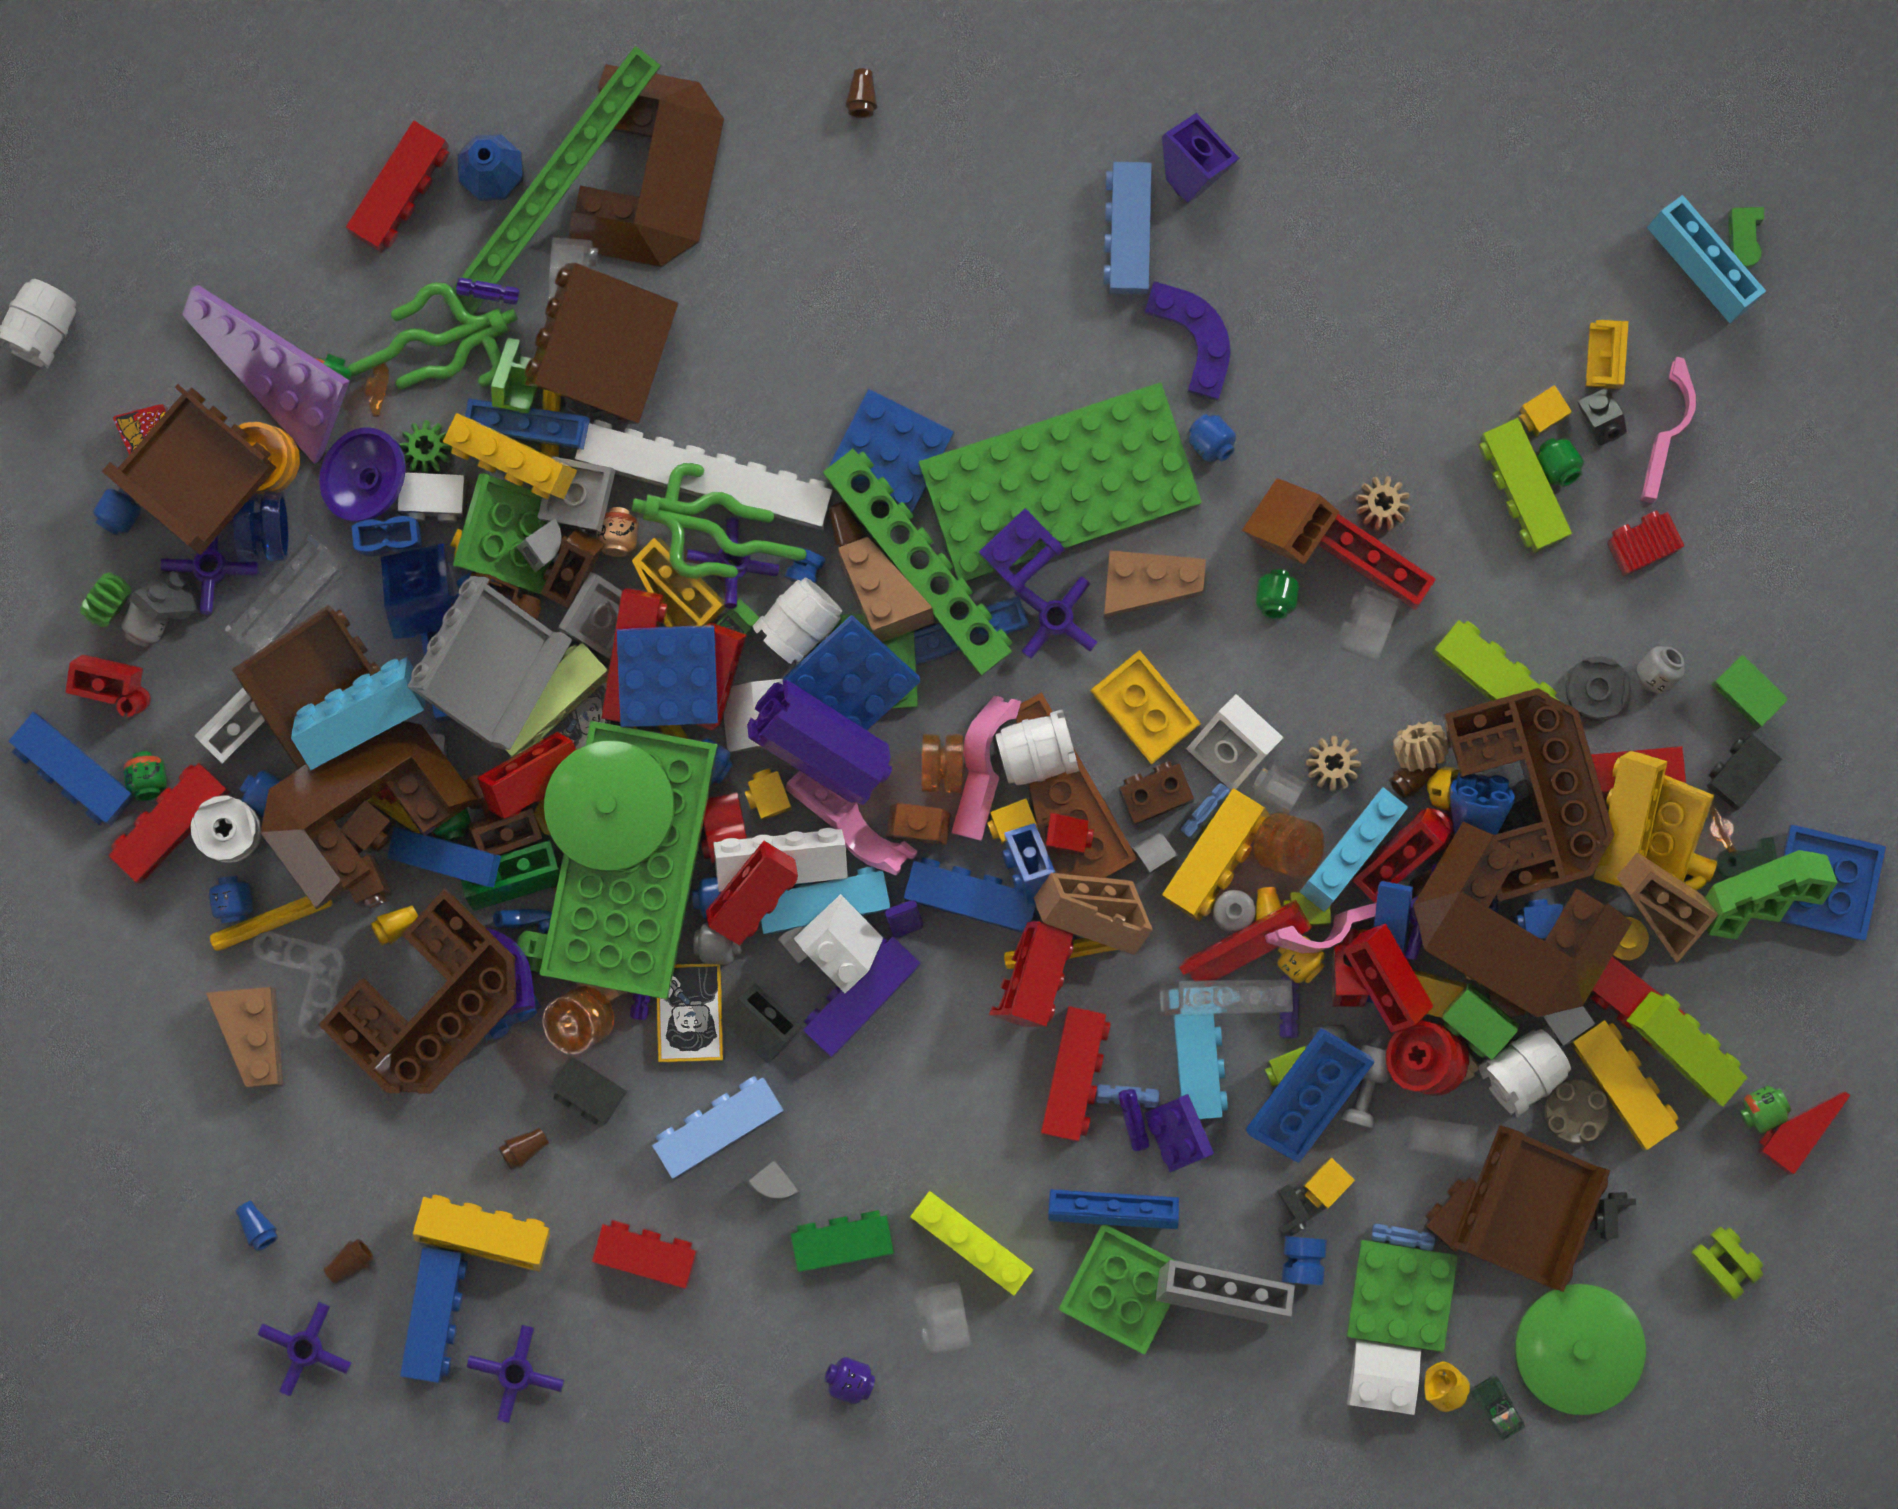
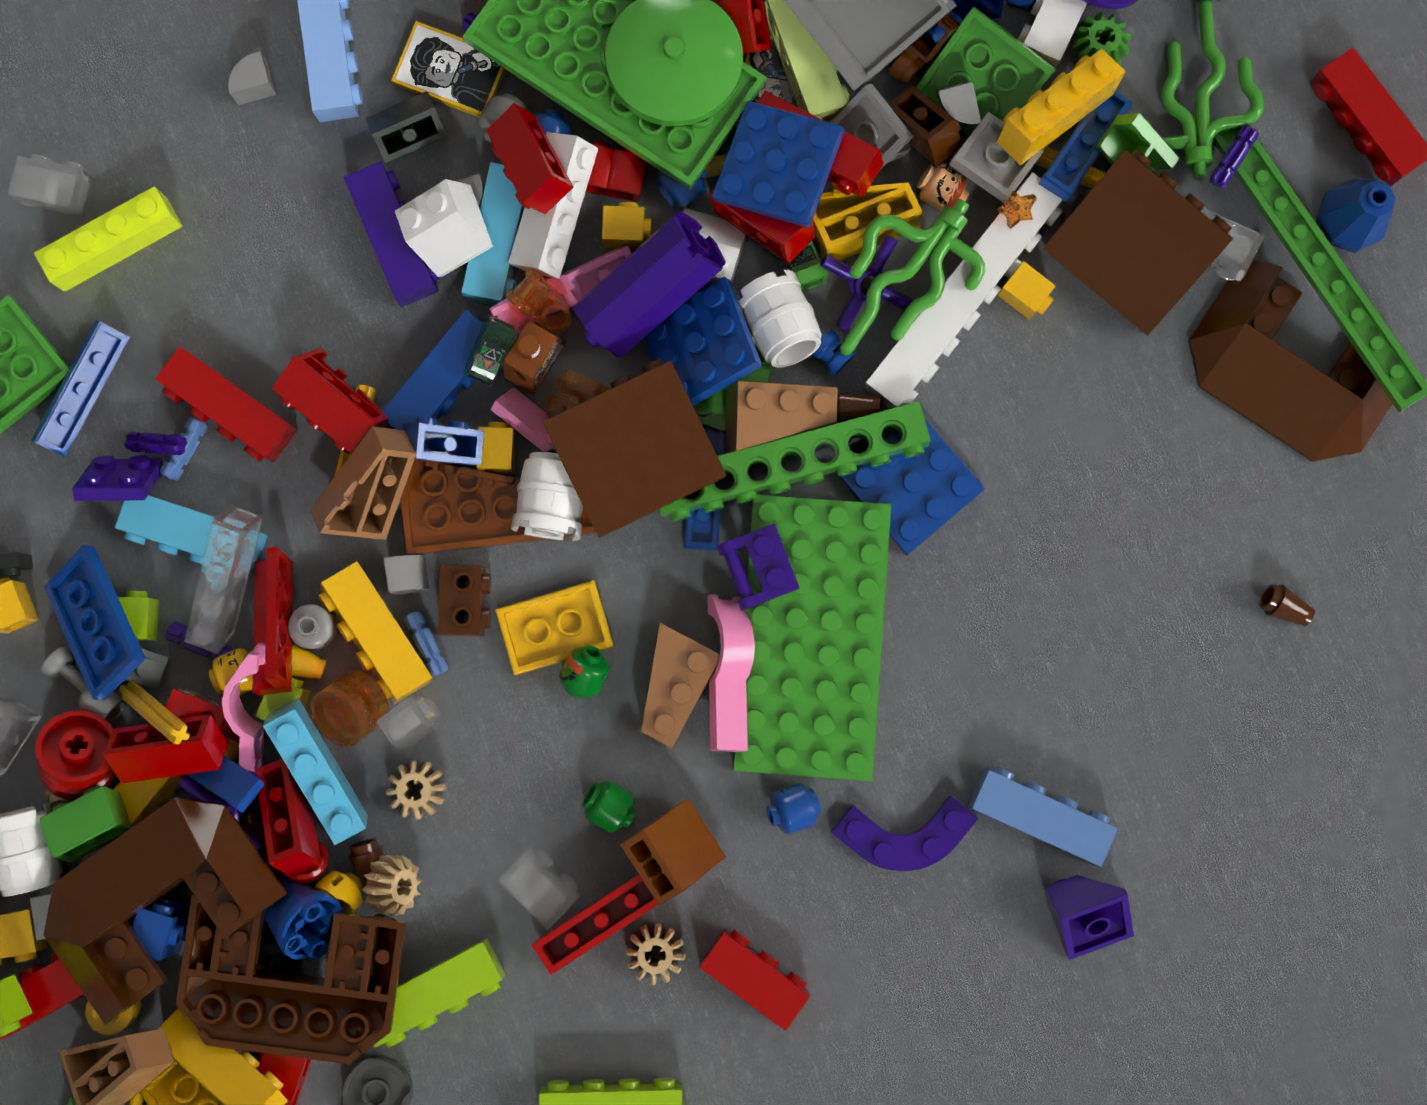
camera: 105 degrees right, 0 degrees up
(376, 388) = (1178, 19): clear orange piece -> none
(616, 457) = (1017, 208): none -> clear orange piece
(679, 421) = (1027, 291): none -> yellow brick
(842, 1241) = (166, 119): green brick -> none
(849, 1380) = (33, 72): dark purple head -> none
(871, 832) = (537, 297): none -> clear orange piece
(904, 918) = (449, 303): dark purple slope -> none
(931, 856) = (490, 349): none -> leg
(967, 692) = (633, 447): none -> reddish brown panel
(1066, 627) = (665, 584): dark purple bar -> none
(1068, 834) = (454, 491): red slope -> none
(1130, 536) = (728, 682): none -> bright pink piece
(1173, 662) = (584, 672): none -> green head
(1234, 742) = (479, 700): white slope -> none
(1362, 997) = (154, 712): none -> yellow axle
(1366, 411) = (755, 978): none -> red brick

